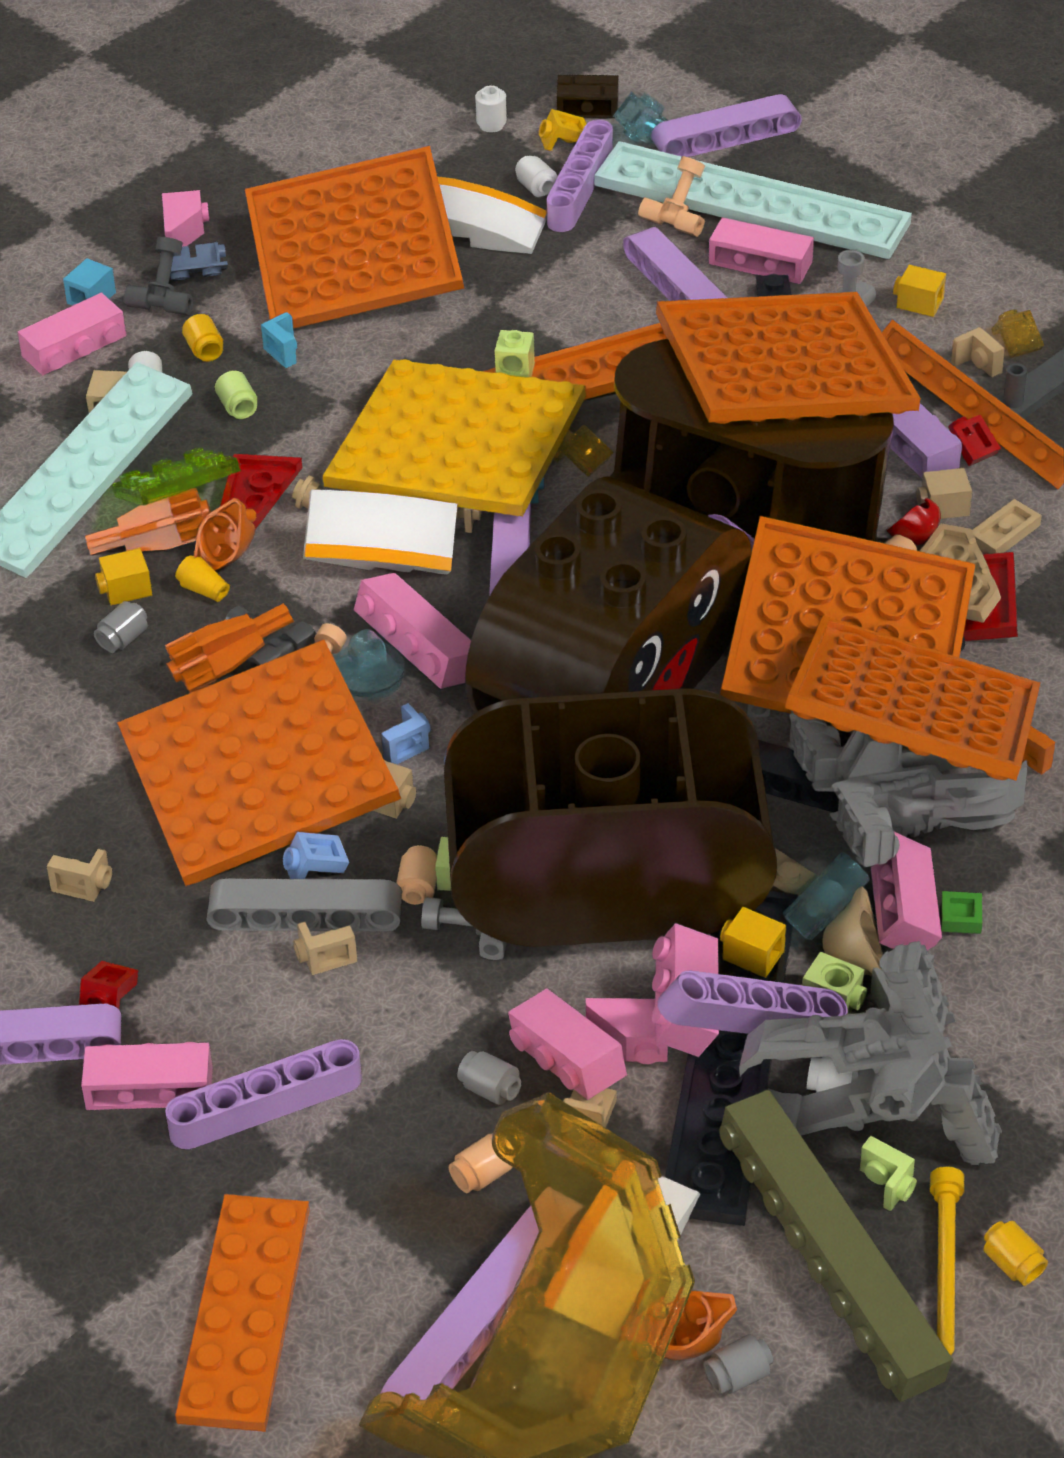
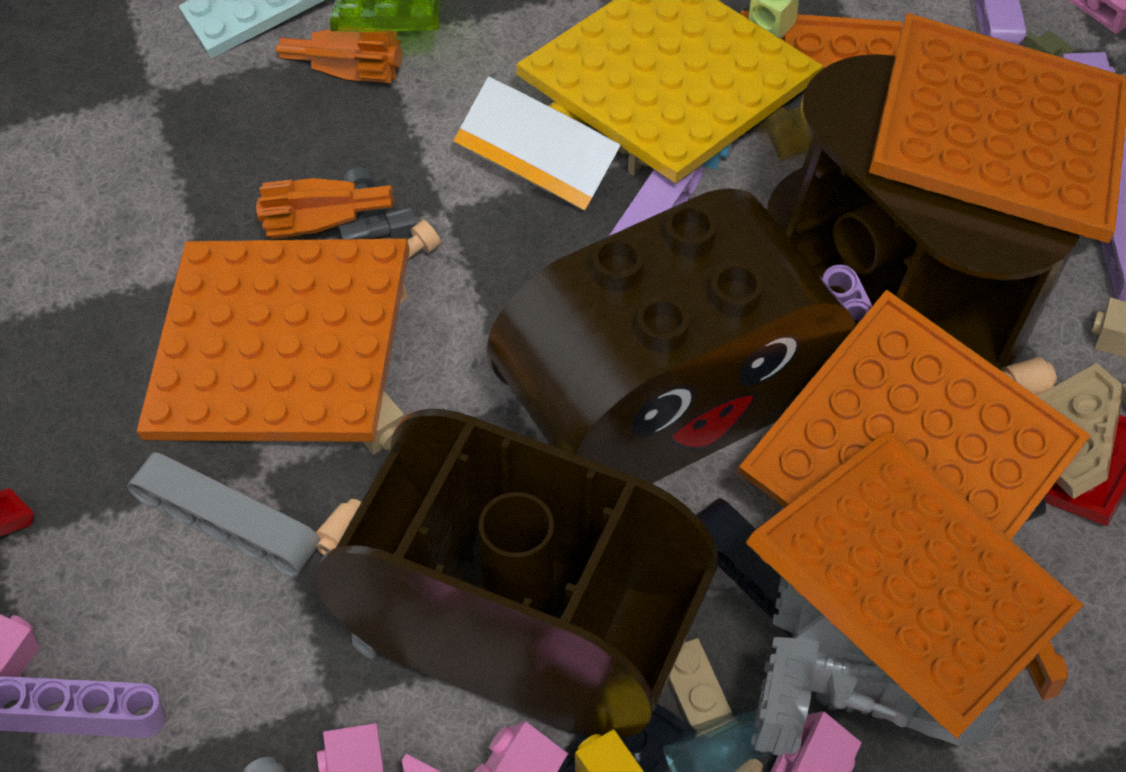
camera: 25 degrees right, 10 degrees up
(80, 878) = (48, 392): tan bracket -> none
(121, 626) = (252, 143): light grey brick -> none
(124, 576) = (286, 93): yellow brick -> none
(201, 578) = (353, 123): yellow cone -> none
(225, 534) = (393, 91): orange hat -> none
(261, 482) = (457, 50): red wing -> none
(302, 491) = (503, 70): tan plate -> none
(314, 853) = (267, 463): light blue bracket -> none
(325, 950) = (211, 574): tan bracket -> none
(370, 666) = (444, 282): clear light blue tile -> none
(406, 738) = (429, 375): light blue bracket -> none
(414, 628) = (503, 245): bright pink brick -> none
(773, 285) = (1083, 30): black plate -> none
(918, 522) = (1072, 353): red hair -> none

